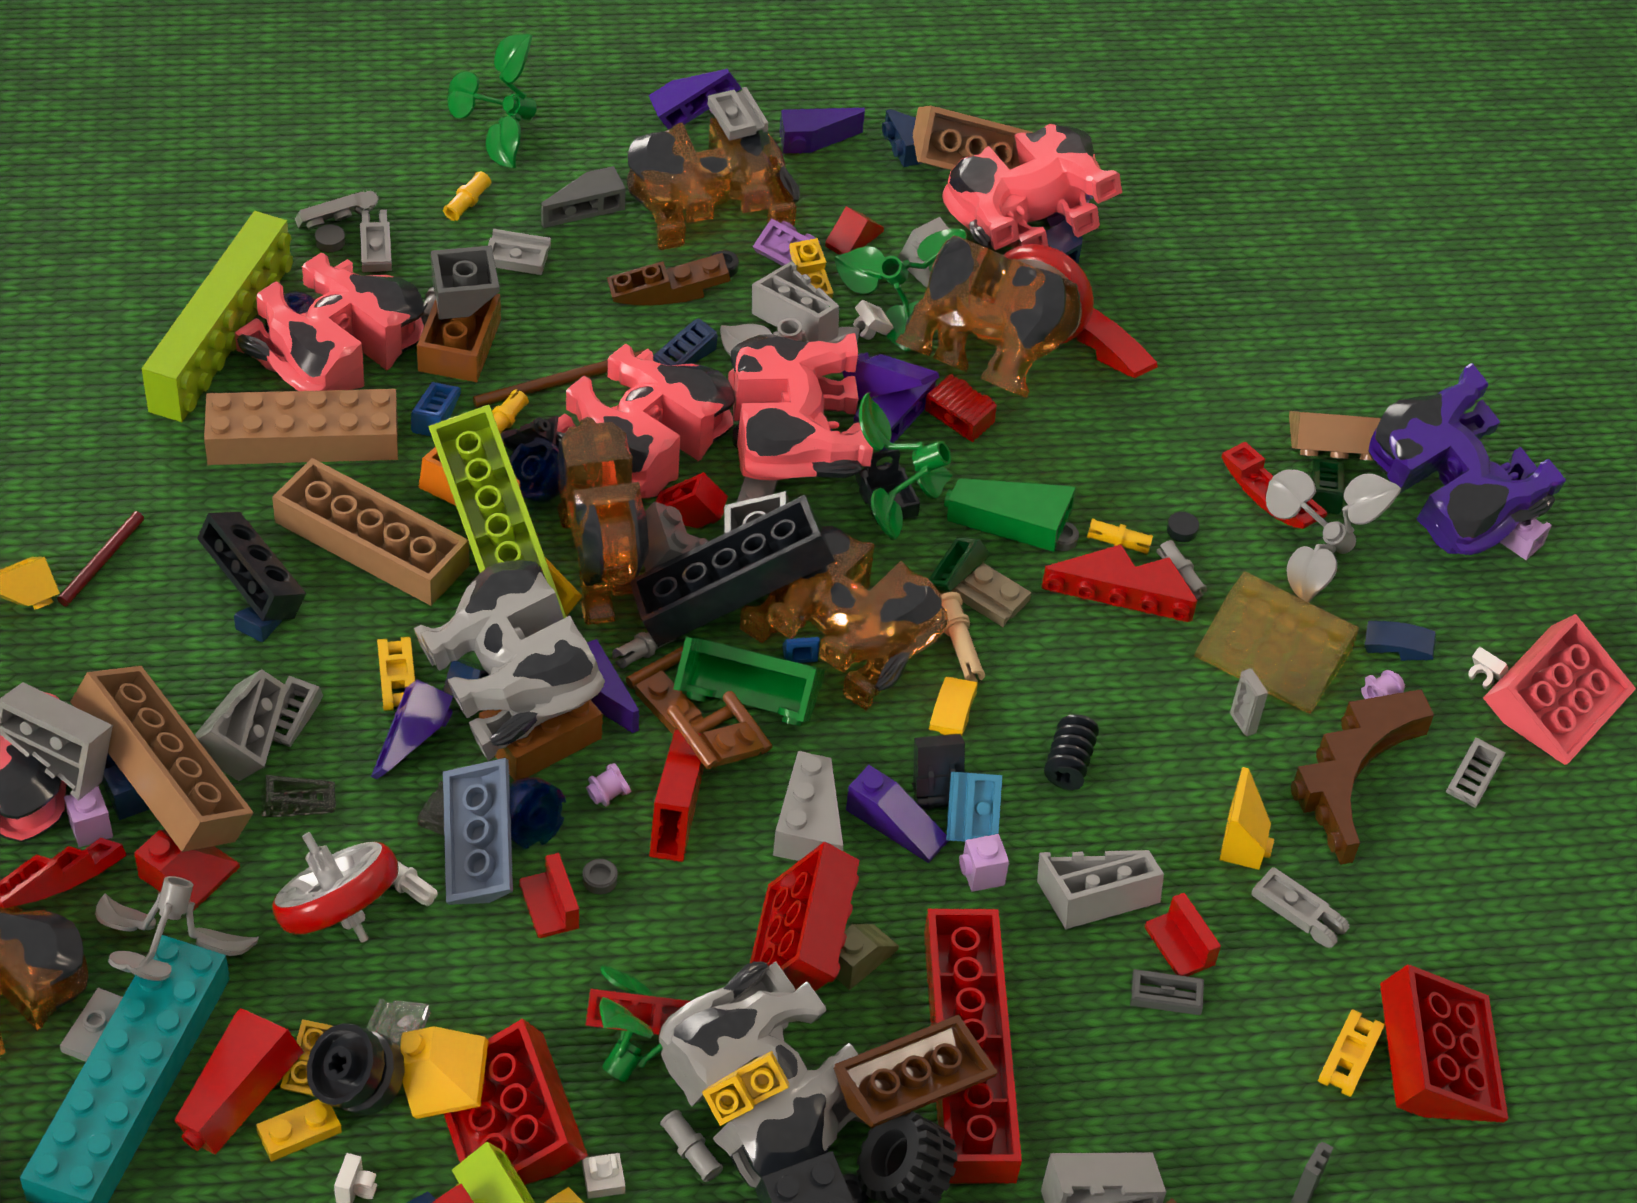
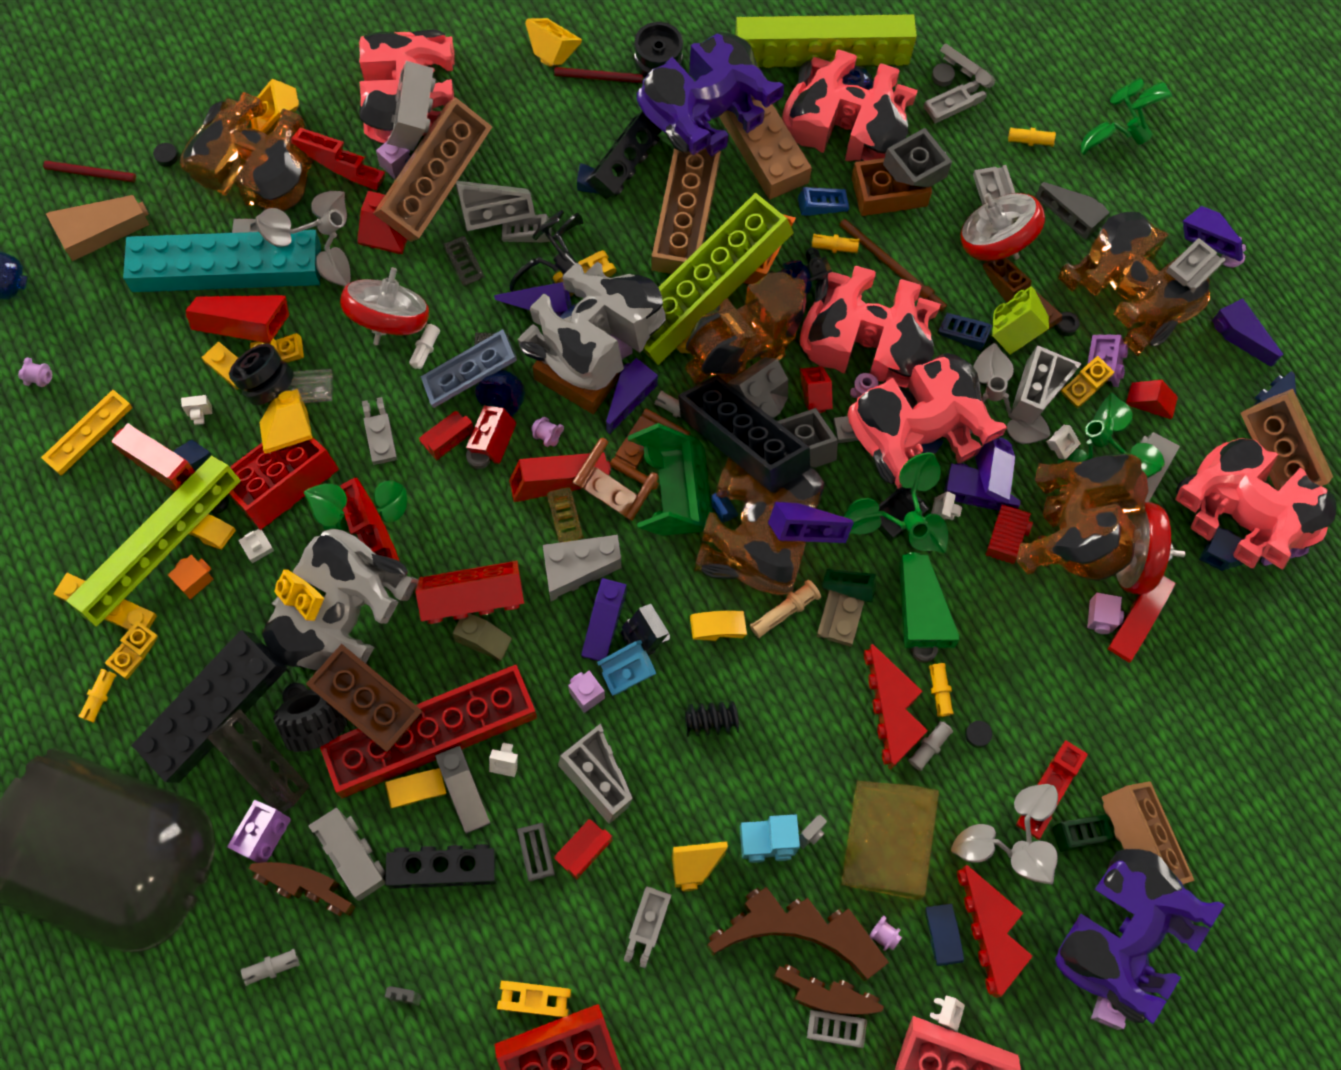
camera: 70 degrees right, 20 degrees up
(118, 477) = (656, 45): none -> black wheel
(231, 424) = (723, 81): none -> dark purple animal
(376, 673) = (564, 259): none -> black plant
(504, 976) = (379, 434): none -> light grey hinge
(577, 844) = (492, 433): none -> red panel
(596, 263) = (990, 229): none -> flat silver wheel
(708, 289) = (1019, 320): none -> lime slope
(712, 460) = (863, 384): none -> lavender brick
(721, 819) = (561, 495): none -> clear yellow slope
(883, 552) = (808, 524): none -> dark purple slope
(900, 437) = (945, 506): none -> white tile
(1038, 1089) = (415, 788): none -> yellow slope
(1039, 980) = (503, 761): none -> white tile
(1058, 1037) = (462, 789): none -> dark grey slope
(1090, 367) = (1105, 613): none -> lavender brick
(1166, 1044) = (482, 874): none -> black brick
(1242, 740) = (770, 838): none -> medium azure brick
(1403, 593) = (992, 920): none -> red slope
(1437, 767) = (838, 998): none -> reddish brown slope

